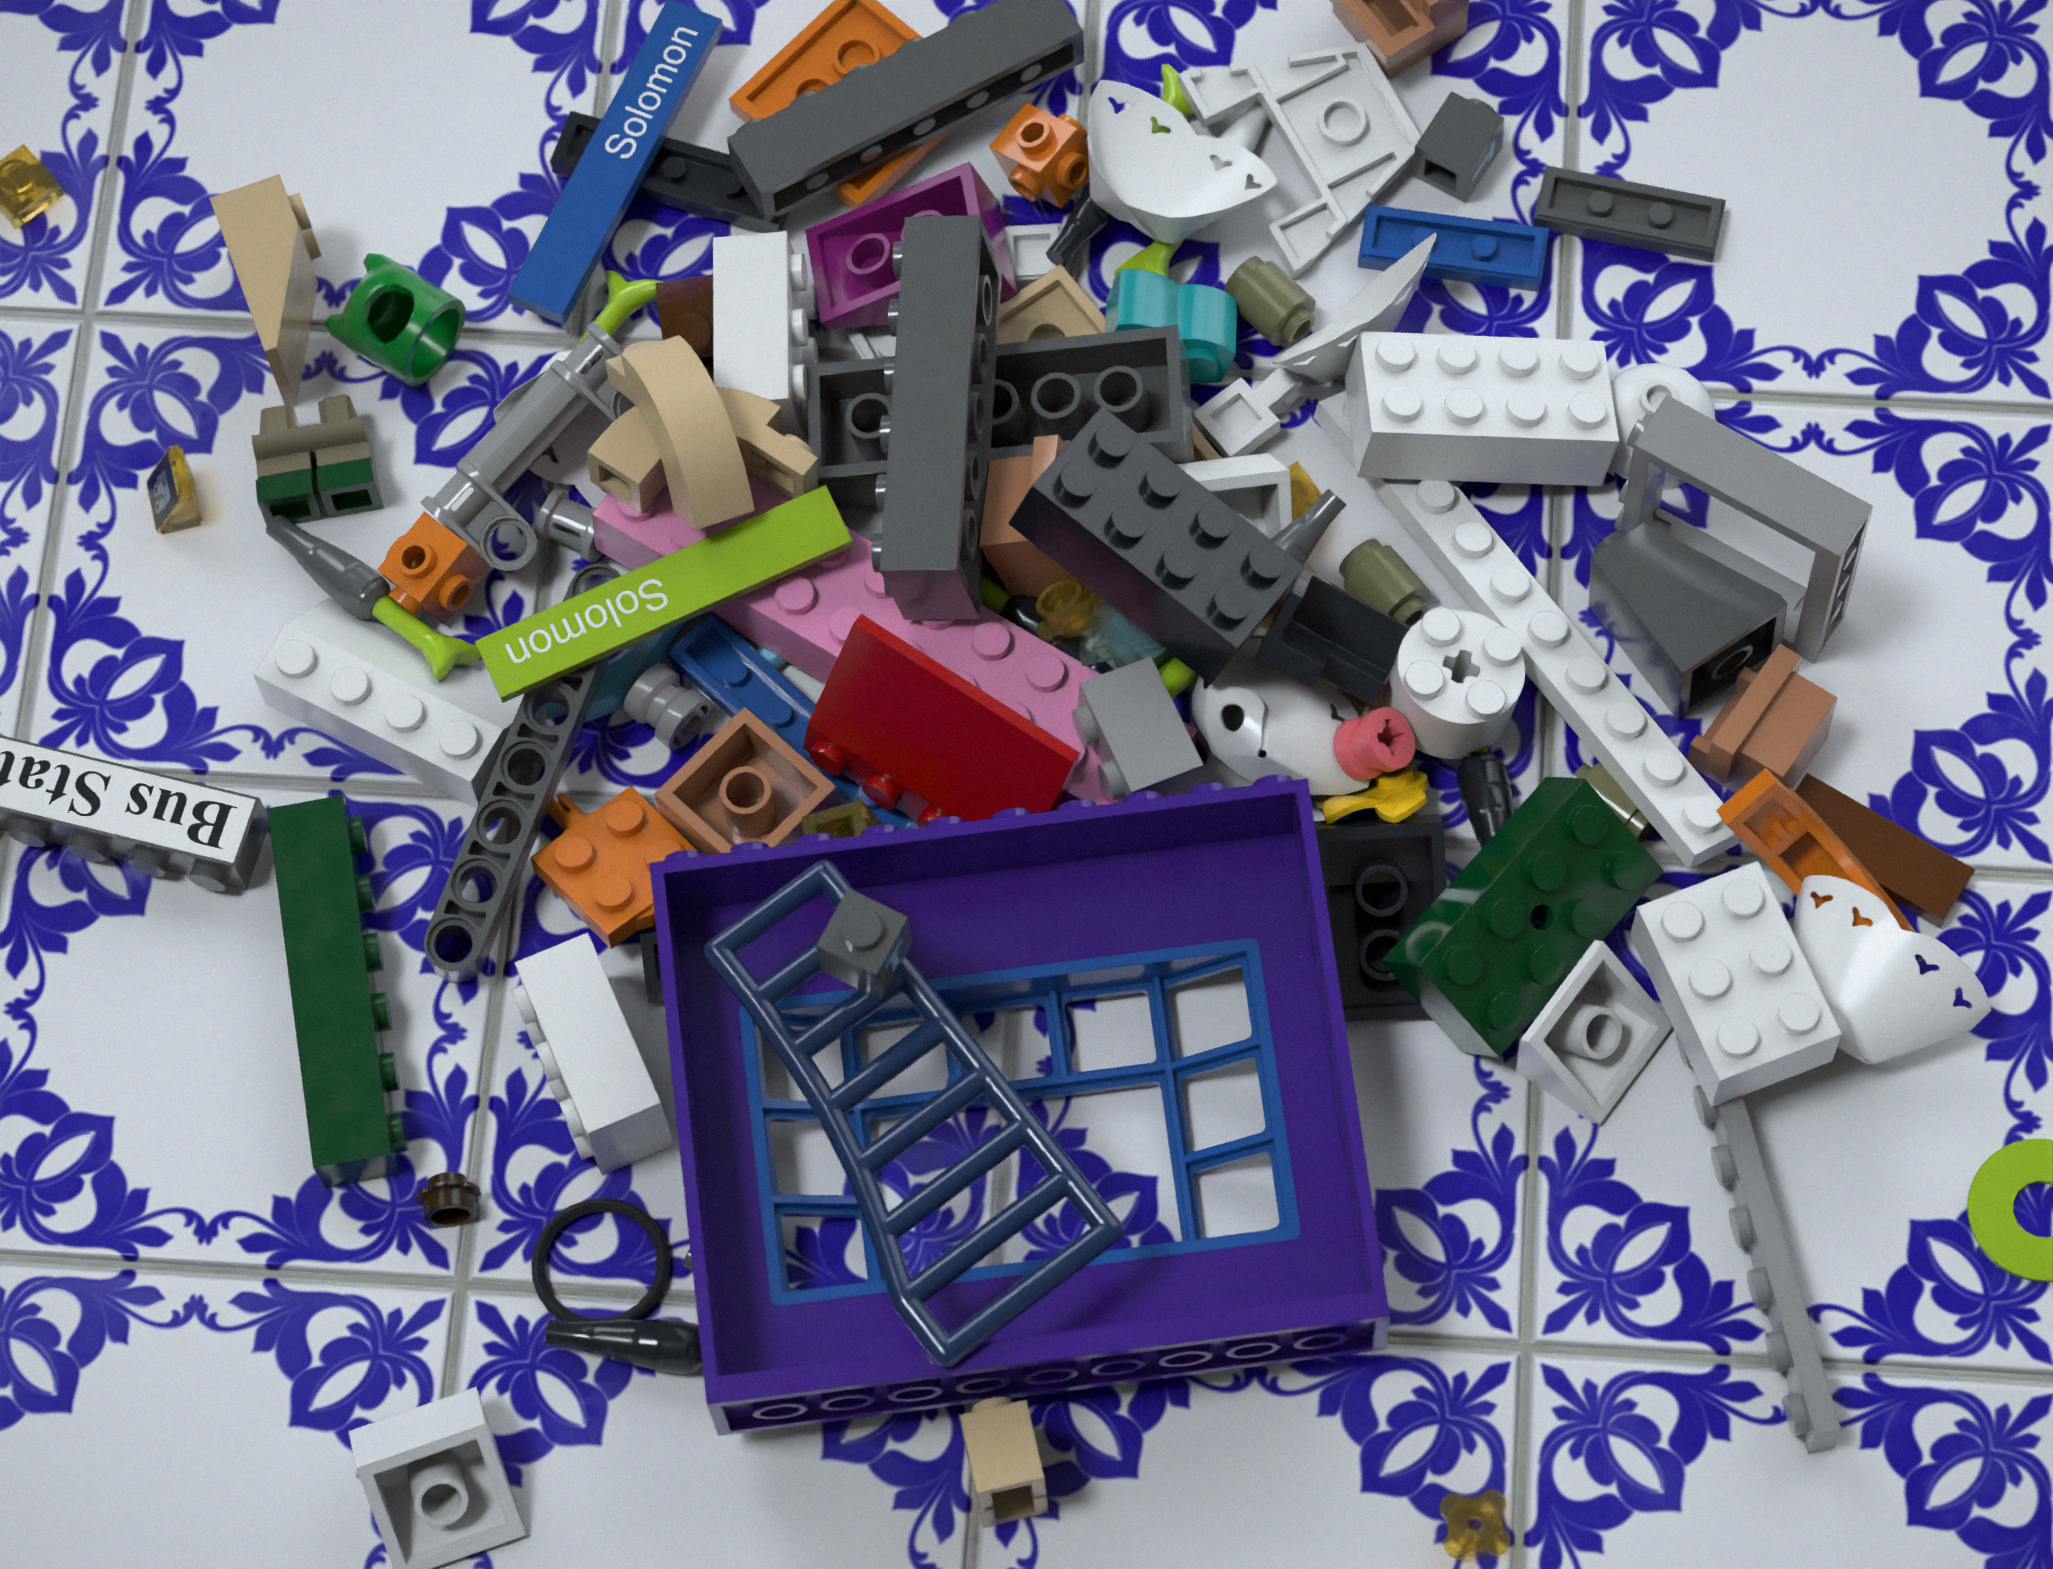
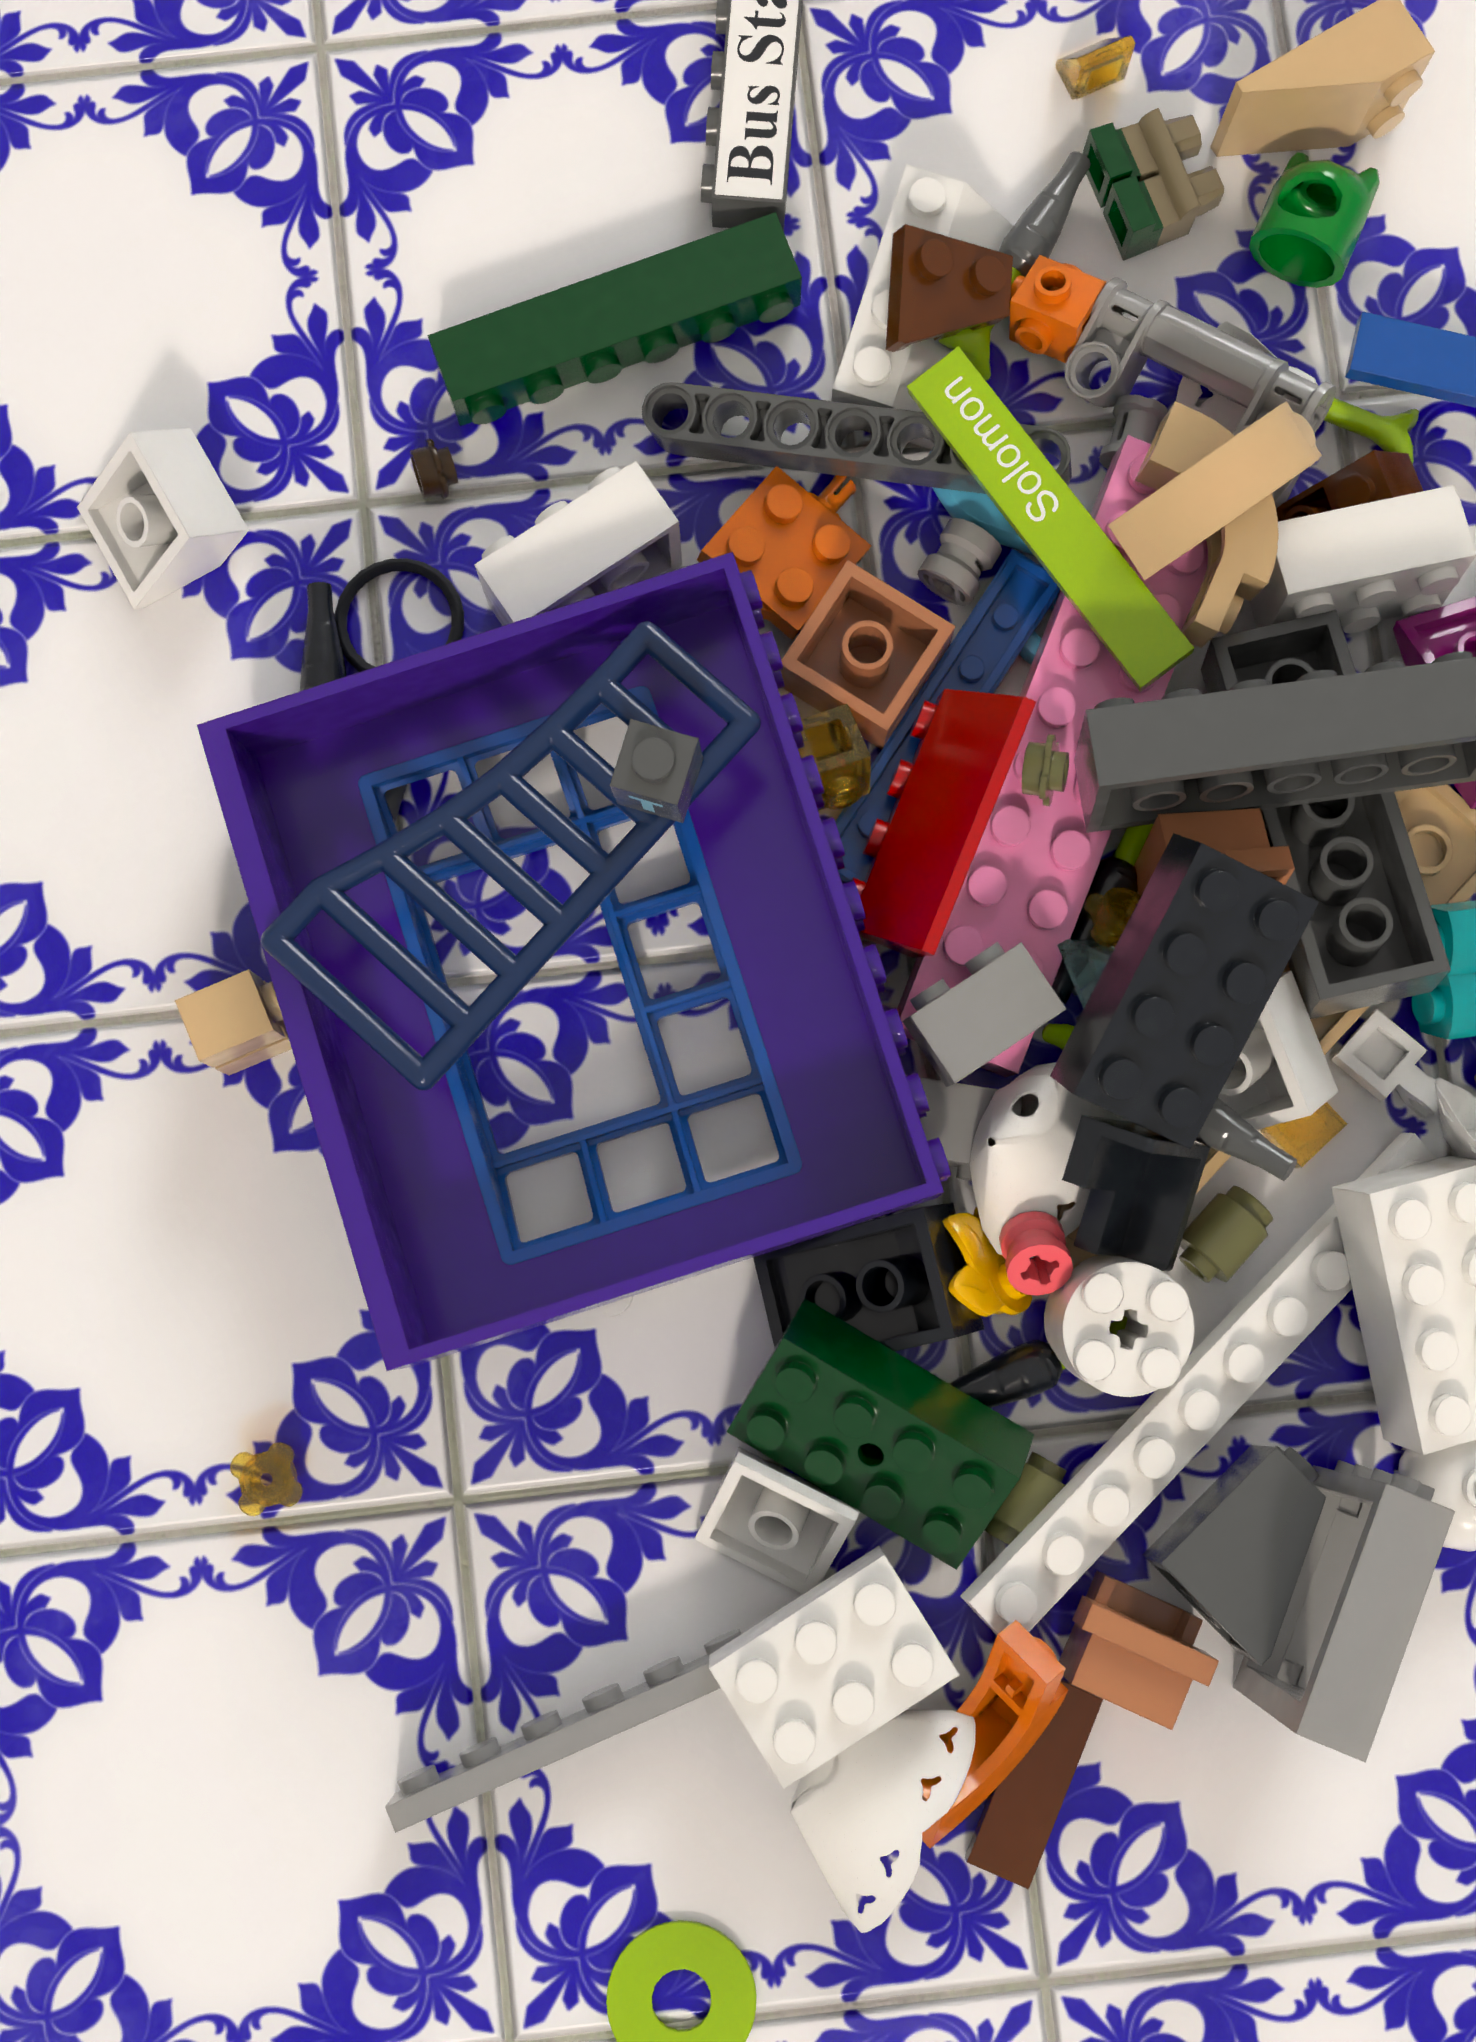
camera: 75 degrees right, 15 degrees up
(397, 657) = (943, 287): none -> reddish brown wing
(918, 633) = (1044, 769): none -> olive plate

